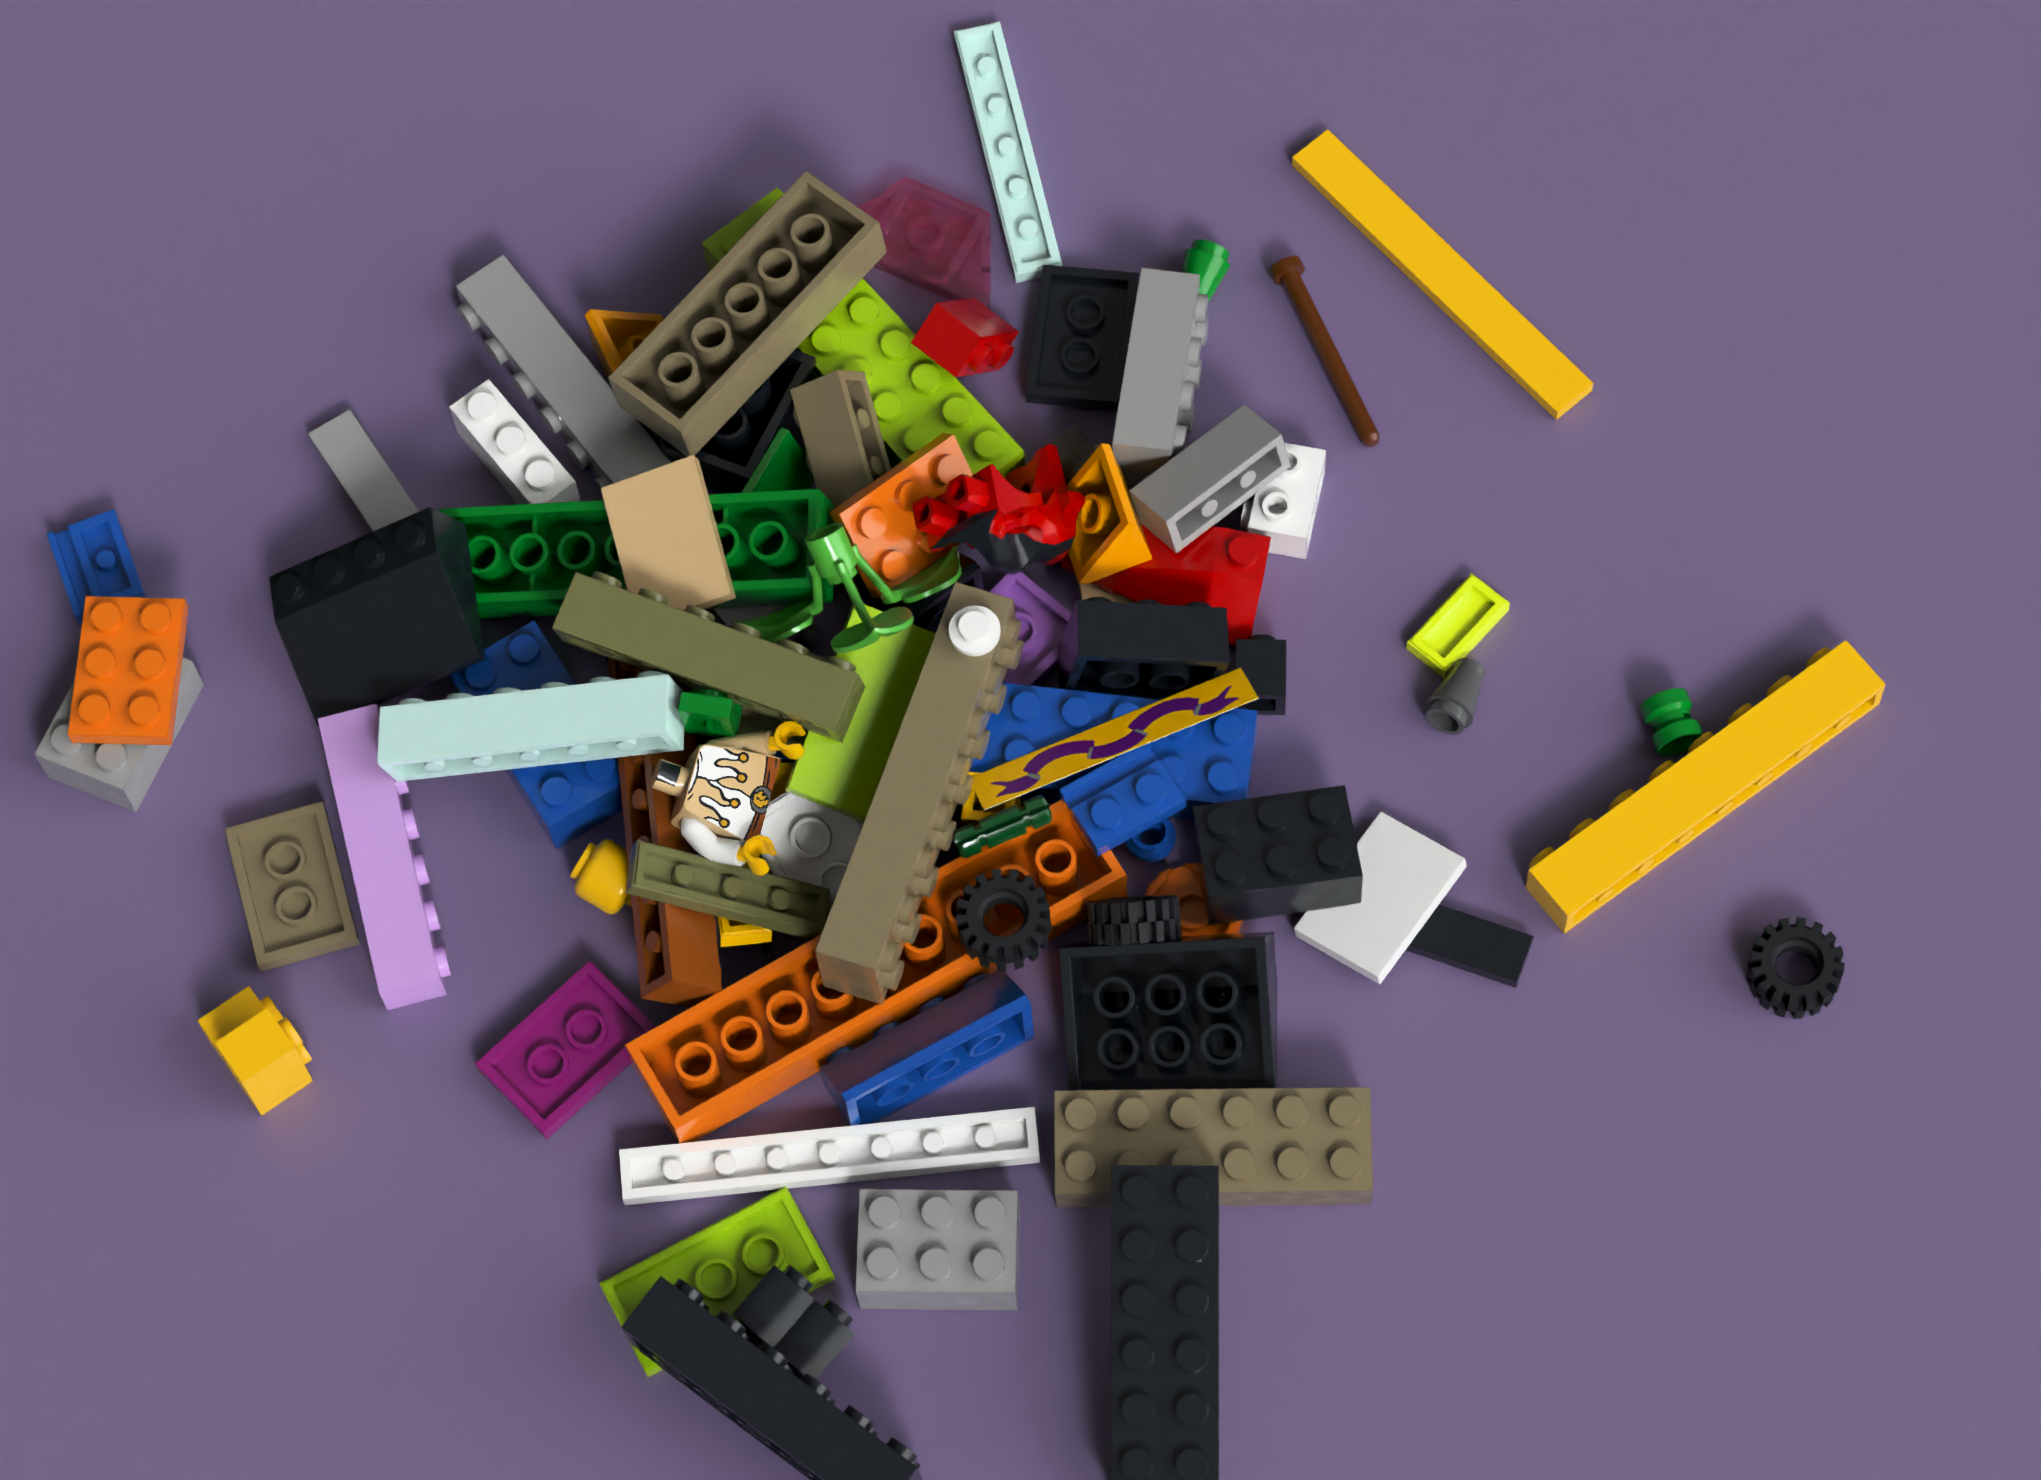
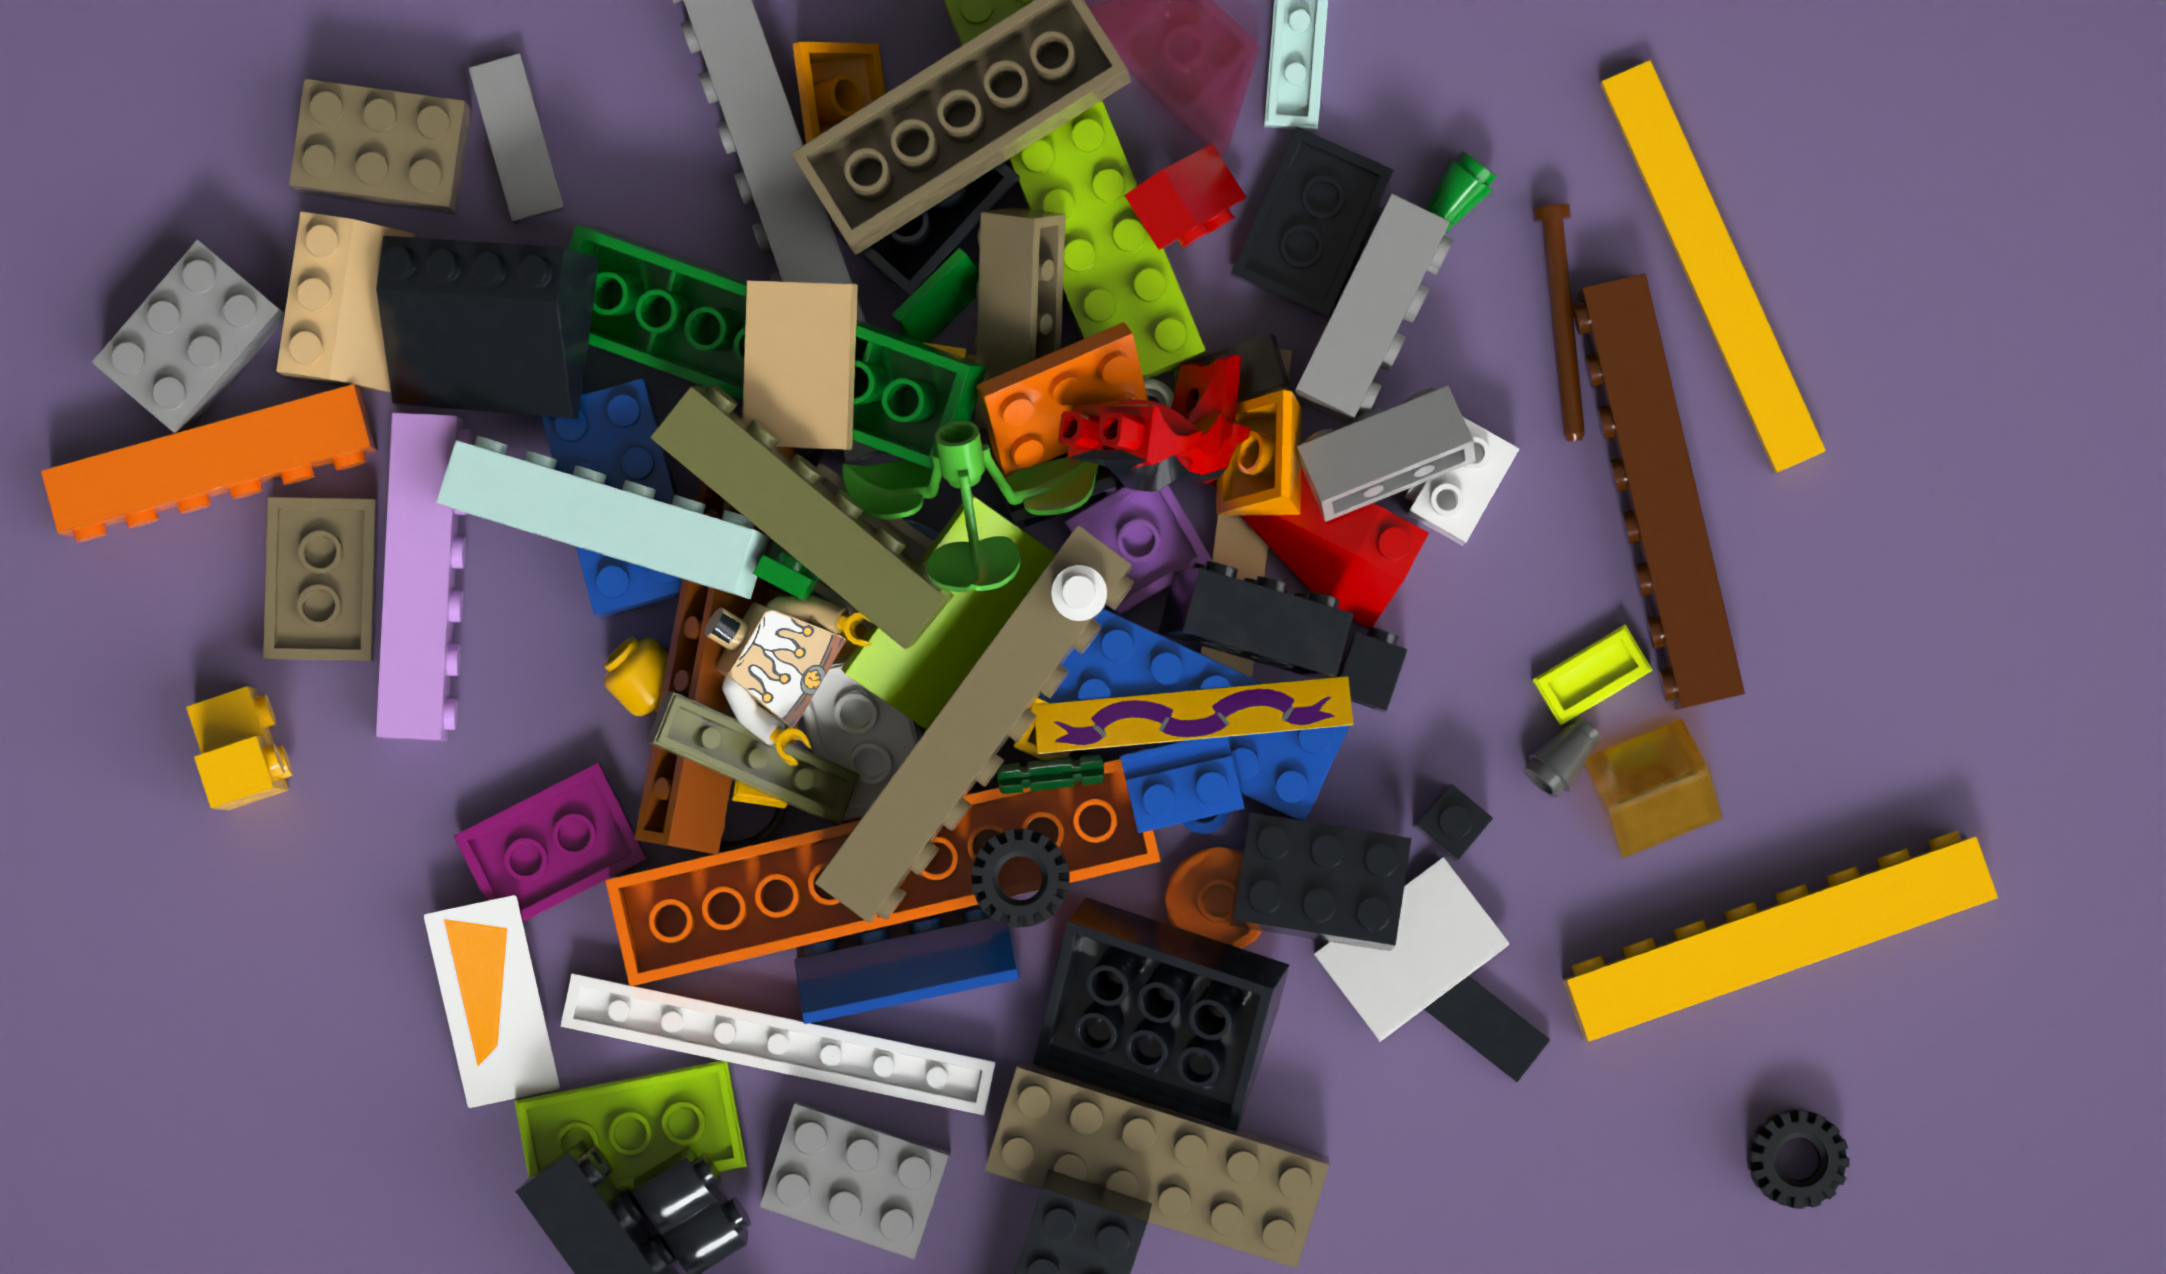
camera: 15 degrees right, 20 degrees up
(95, 561) = (209, 151): blue plate -> none
(128, 670) = (209, 306): orange plate -> none
(164, 816) = (208, 462): none -> orange brick
(241, 655) = (333, 306): none -> tan slope
(246, 514) = (380, 146): none -> dark tan brick
(511, 448) = (677, 170): white brick -> none
(552, 1200) = (491, 1001): none -> white sticker
(1133, 920) = (1152, 911): black tyre -> none
(1378, 775) = (1453, 822): none -> black brick
(1463, 459) = (1659, 492): none -> reddish brown brick
(1548, 700) = (1653, 788): none -> clear yellow slope
(1671, 720) = (1770, 858): green wheel -> none

